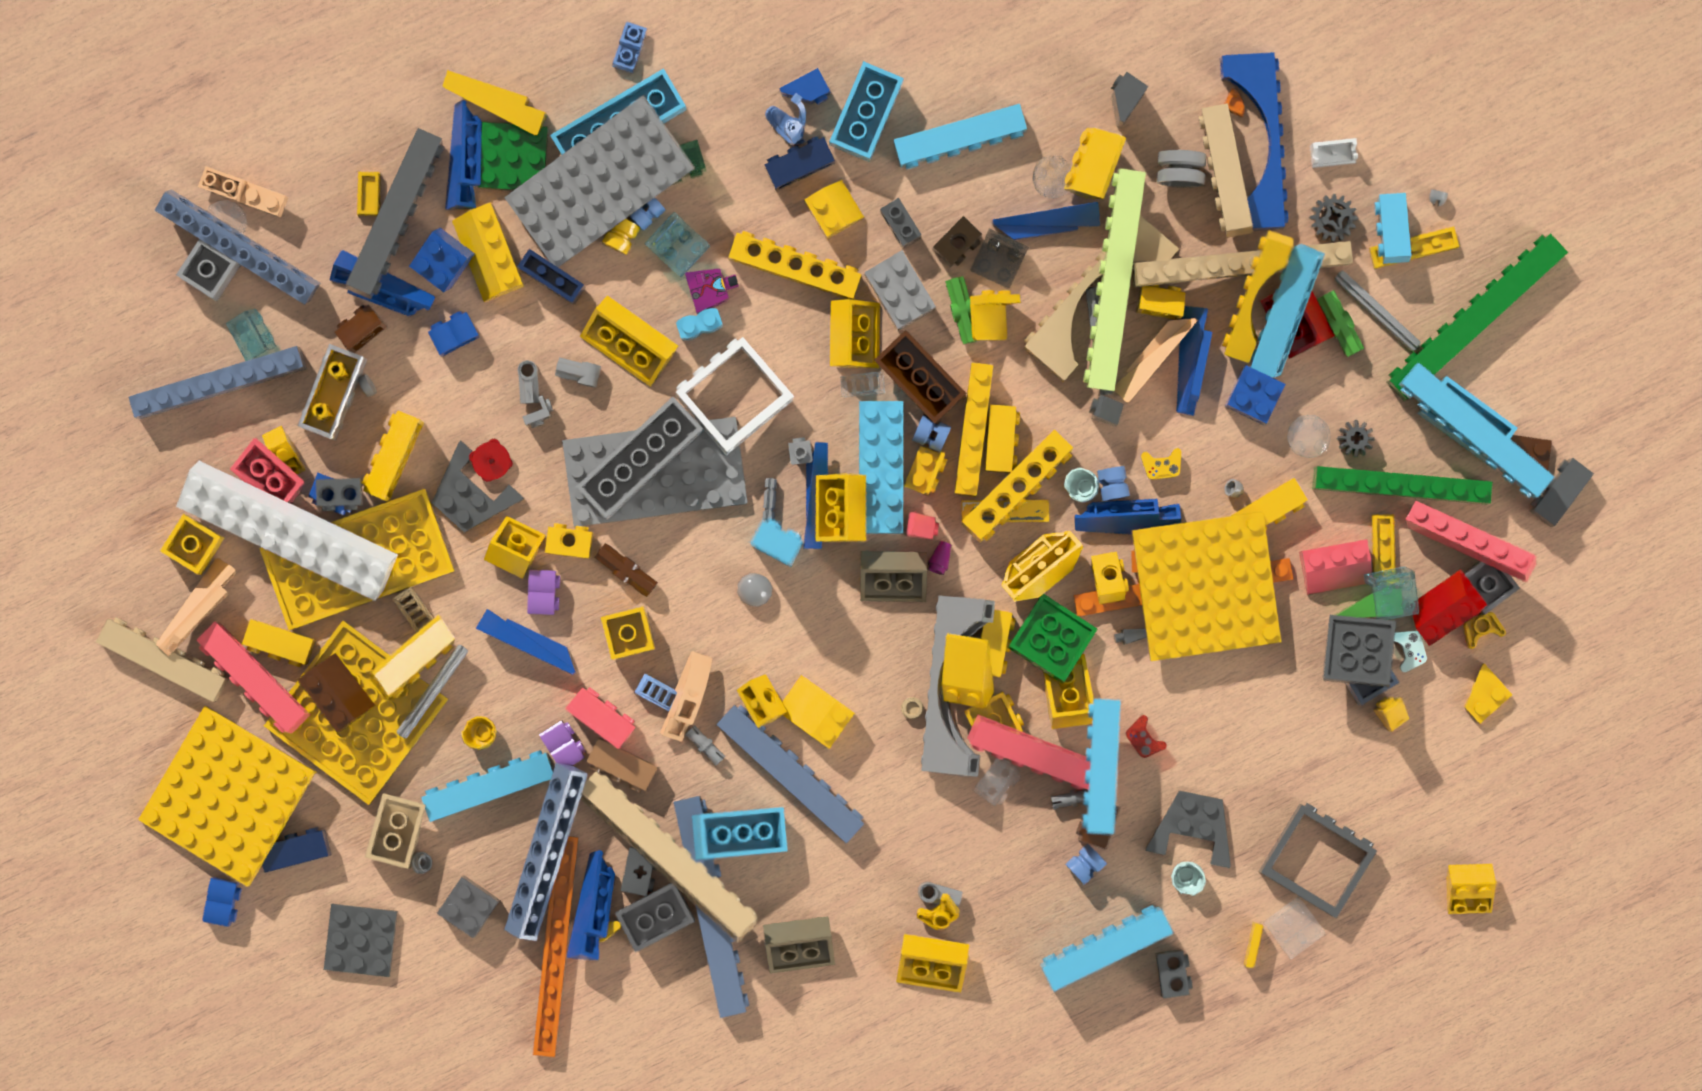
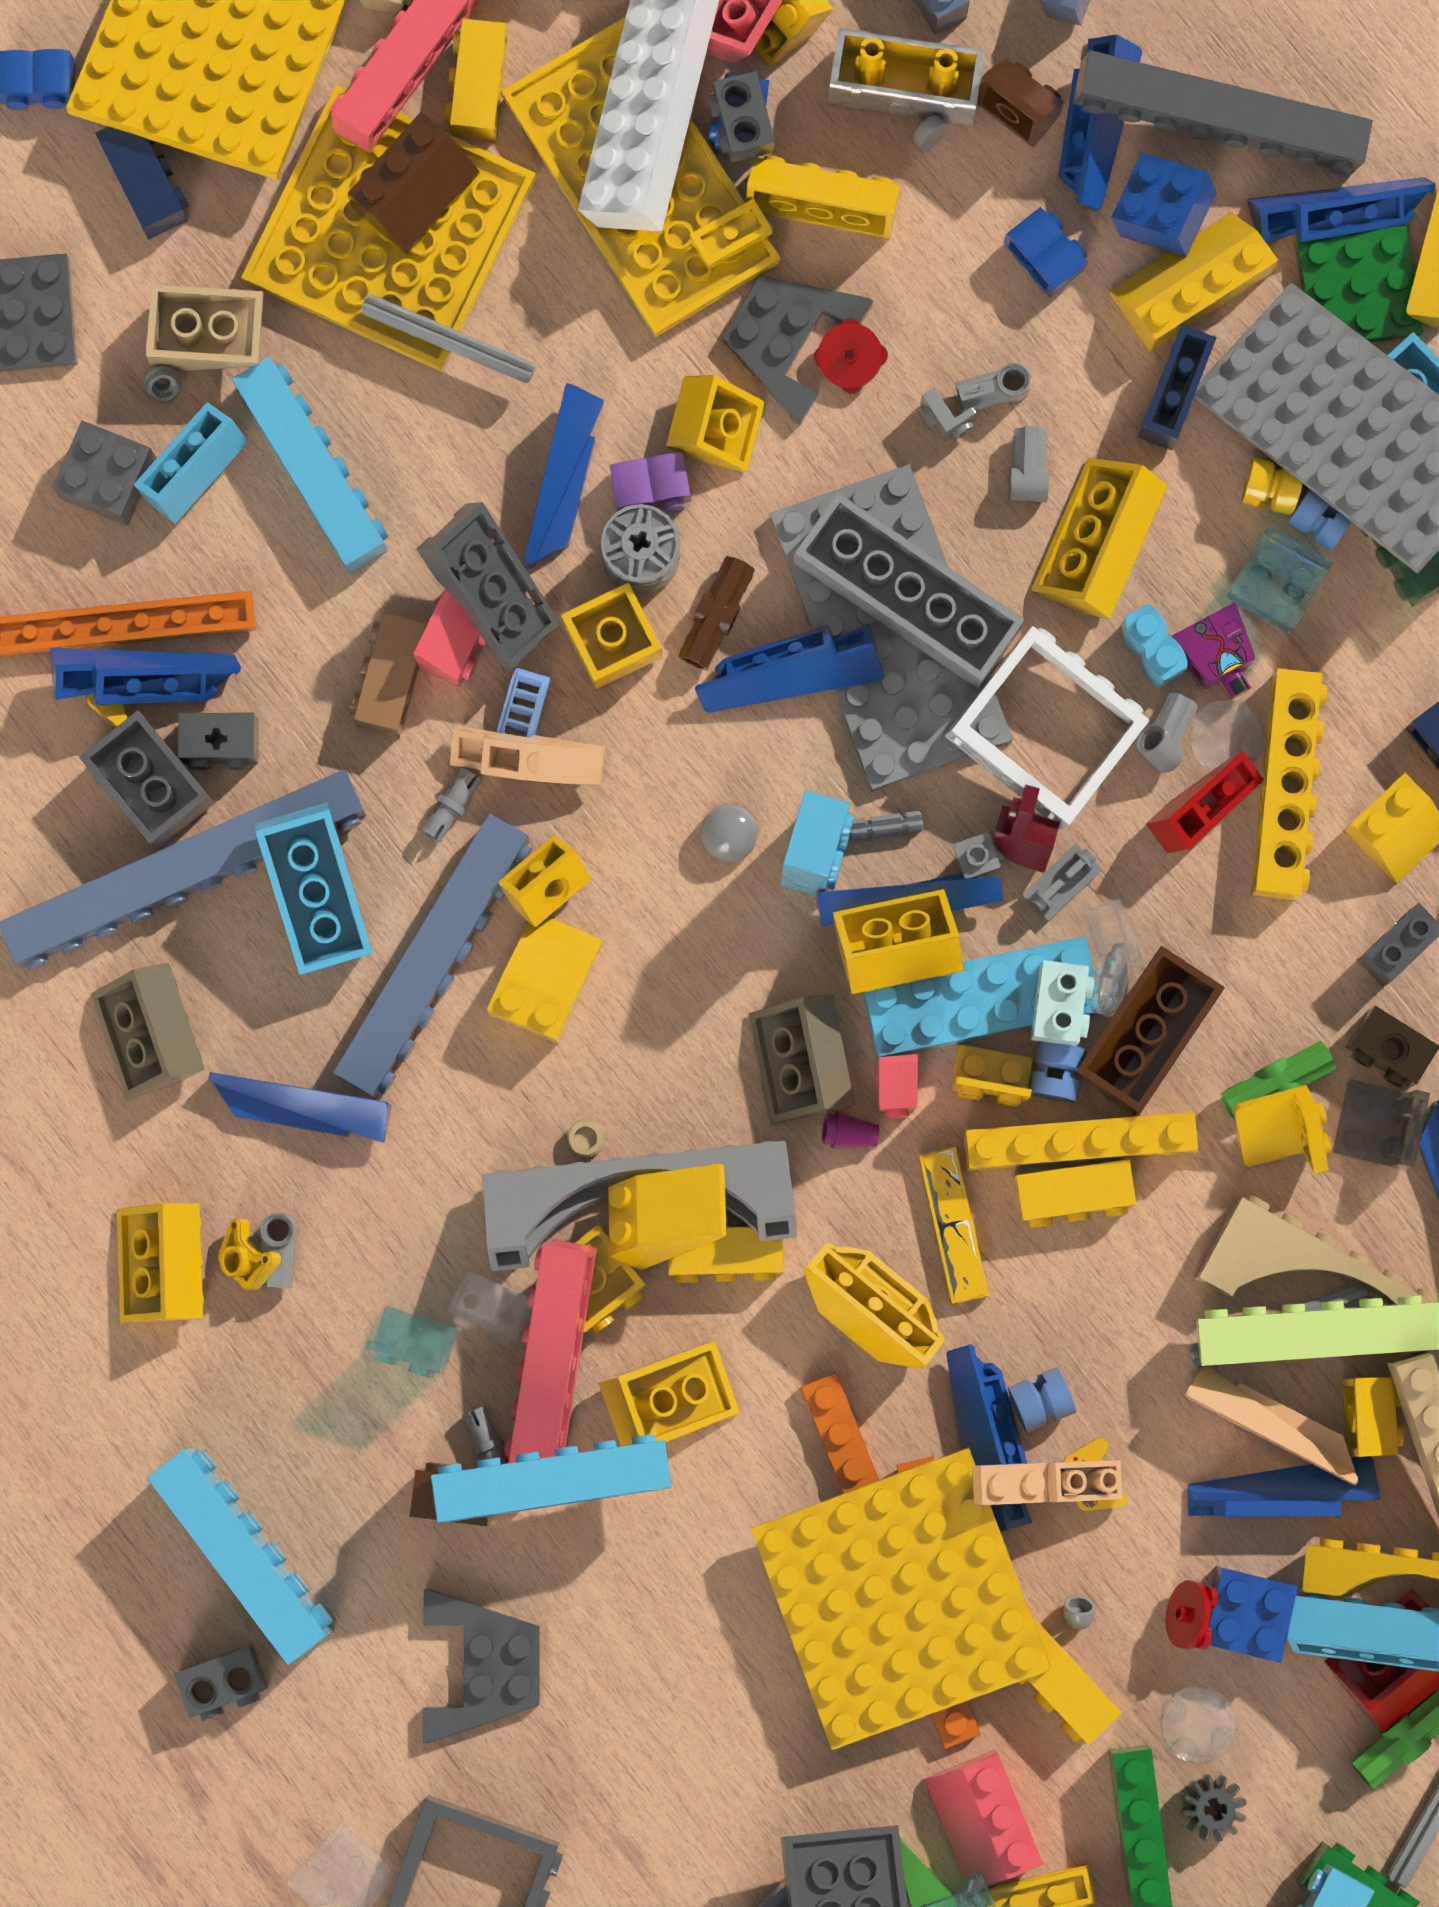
camera: 80 degrees right, 5 degrees down
(368, 193) = (1247, 69): yellow tile -> none
(403, 608) = (596, 284): tan slope -> none
(405, 514) = (730, 234): none -> yellow plate
(412, 658) = (496, 292): yellow slope -> none
(474, 855) = (191, 463): none -> medium azure brick
(479, 733) = (395, 430): yellow hair -> none
(546, 851) = (219, 576): sand blue brick -> none
(556, 545) = (744, 532): yellow brick -> none
(562, 744) = (398, 572): medium lavender brick -> none
(585, 697) = (489, 583): none -> dark grey piece
(593, 602) = (649, 568): none -> light grey wheel
(667, 857) = (248, 776): tan brick -> none
(668, 533) = (793, 668): none -> blue wedge
(755, 332) = (1162, 740): none -> light grey piece
(759, 294) = (1224, 730): none -> clear dish
(794, 421) = (1023, 835): none -> dark red brick
(797, 316) = (1204, 804): none -> red slope
(823, 406) = (1062, 881): none -> light grey hinge
(854, 333) = (1197, 907): yellow slope -> none
(861, 864) = (304, 1107): none -> blue wedge
(888, 391) = (1114, 980): none -> clear dish
(896, 424) = (1061, 1003): none -> light aqua brick
(899, 290) = (1287, 967): light grey brick -> none
(1007, 828) = (413, 1340): none -> clear light blue bracket
(1052, 443) = (1086, 1280): yellow brick -> none
(1052, 638) = (754, 1351): green plate -> none
(1081, 484) = (1027, 1345): light aqua hair -> none
(1086, 863) = (379, 1490): medium blue wheel -> none
(1106, 410) = (1164, 1360): dark grey slope -> none
(1106, 589) = (858, 1432): yellow brick -> none
(1130, 635) = (787, 1484): dark grey piece -> none
(1142, 740) = (612, 1542): clear red piece -> none
(1160, 491) = (1047, 1482): none -> light nougat slope
(1188, 878) = (391, 1673): light aqua hair -> none
(1248, 427) = (1189, 1615): none -> red piece
(1253, 945) = (298, 1812): yellow tile -> none

